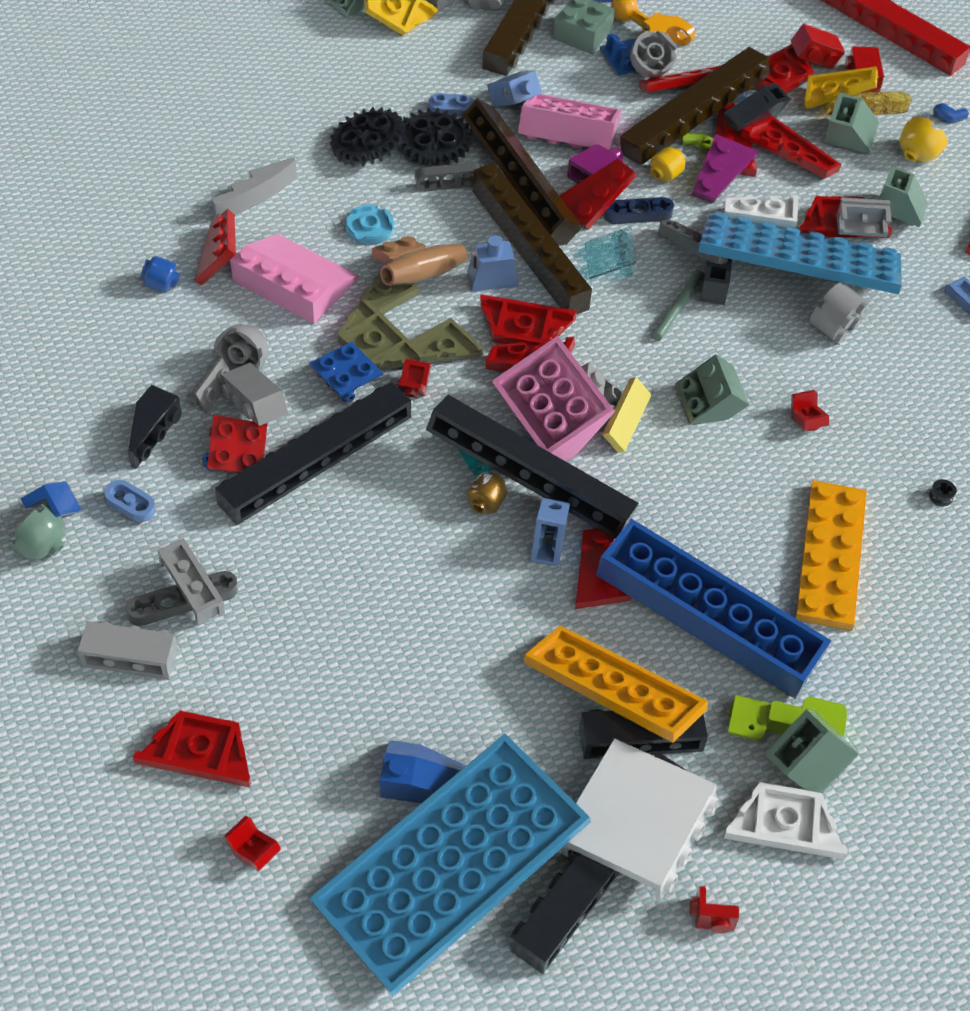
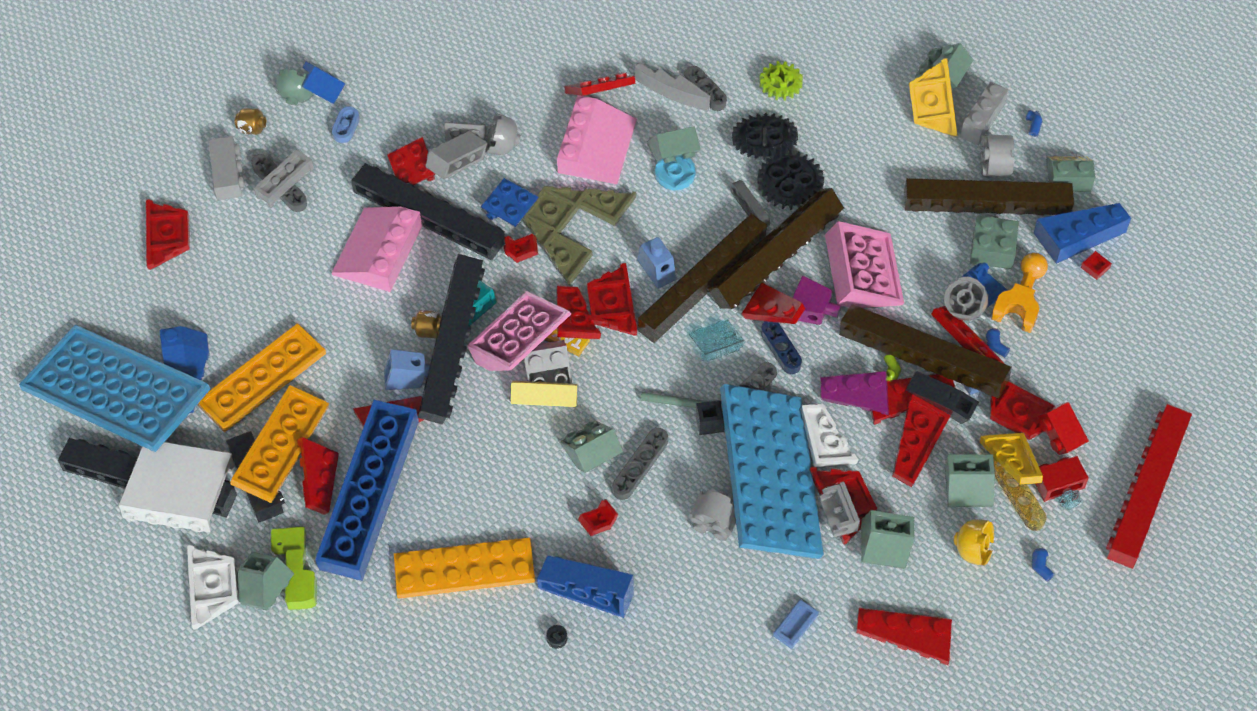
camera: 75 degrees right, 5 degrees up
(65, 600) = (250, 121): none -> pearl gold head
(152, 419) = (415, 109): black slope -> none
(159, 274) = (555, 63): blue head -> none
(251, 844) = (105, 282): red bracket -> none
(260, 161) = (704, 80): none -> dark grey beam
(297, 104) = (781, 80): none -> lime gear
(342, 515) = (379, 246): none -> bright pink slope
(343, 205) = (674, 144): none -> sand green slope
(411, 262) = (637, 208): medium nougat plate -> none
(452, 102) = (840, 180): medium blue plate -> none
(489, 684) = (261, 377): none -> light orange plate
(520, 87) = (873, 215): medium blue torso -> none
(659, 656) = (319, 474): none -> red wing
(667, 164) = (842, 350): yellow head -> none
(693, 63) = (994, 342): none -> blue arm
(713, 916) = (122, 547): red bracket -> none
(748, 359) = (643, 465): none -> dark grey beam
(891, 71) = (1070, 499): none -> clear light blue plate
(894, 440) = (587, 584): none -> blue wedge

